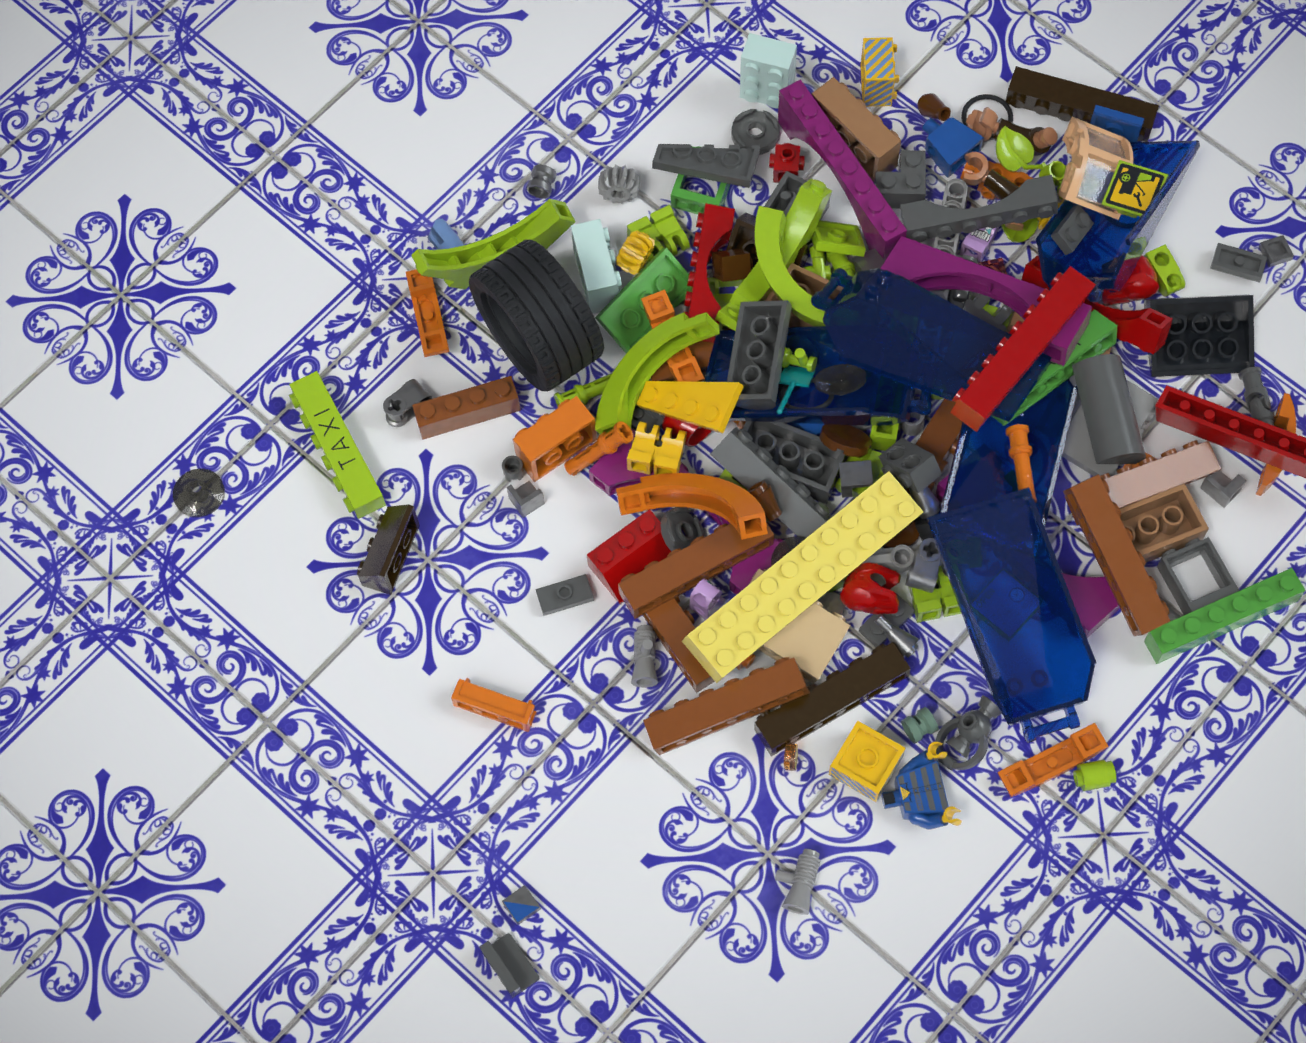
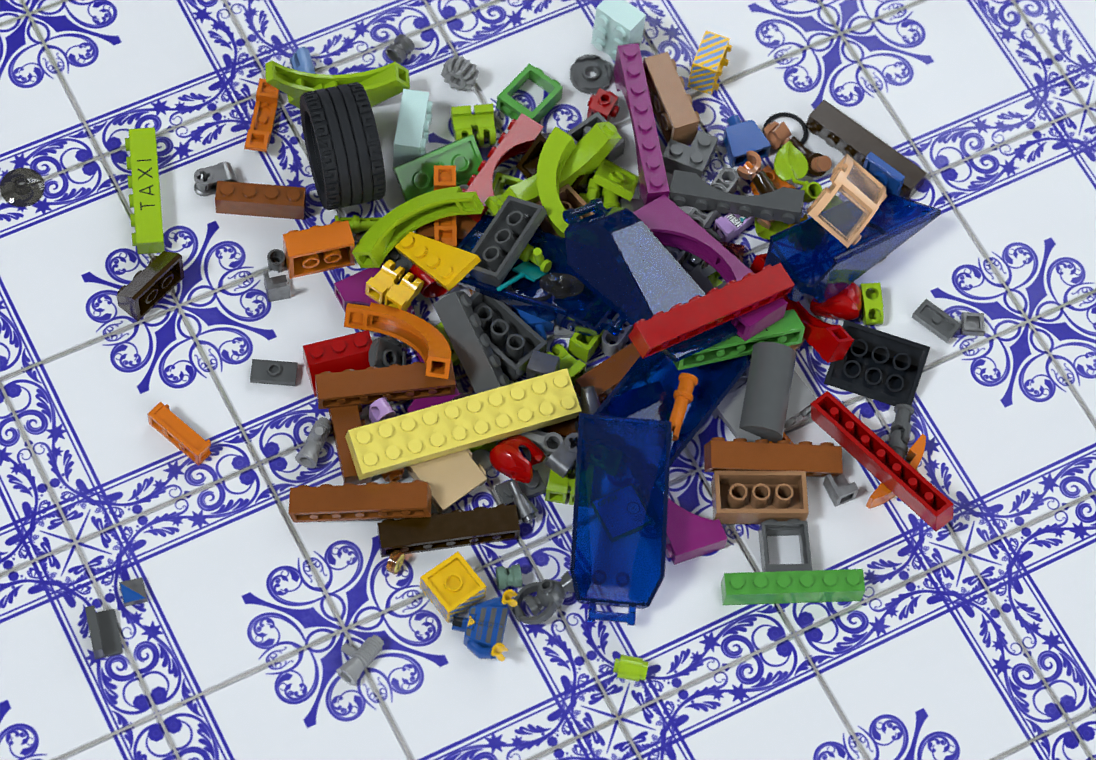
camera: 10 degrees right, 5 degrees down
(606, 444) = (356, 266): orange pin -> none
(635, 252) = (446, 129): yellow gear -> none
(723, 165) = (546, 87): dark grey wing -> none
(731, 264) = (520, 167): reddish brown brick -> none
(766, 497) = (460, 355): reddish brown cone -> none
(846, 438) = (549, 334): reddish brown tile -> none
(910, 465) = (588, 372): dark grey brick -> none
(932, 107) = (742, 107): reddish brown cone -> none
(1053, 761) = (602, 646): orange slope -> none
(1072, 229) = (806, 241): dark grey plate -> none
(1117, 555) = (721, 503): dark orange brick -> none
(1133, 188) = (866, 224): piece -> none

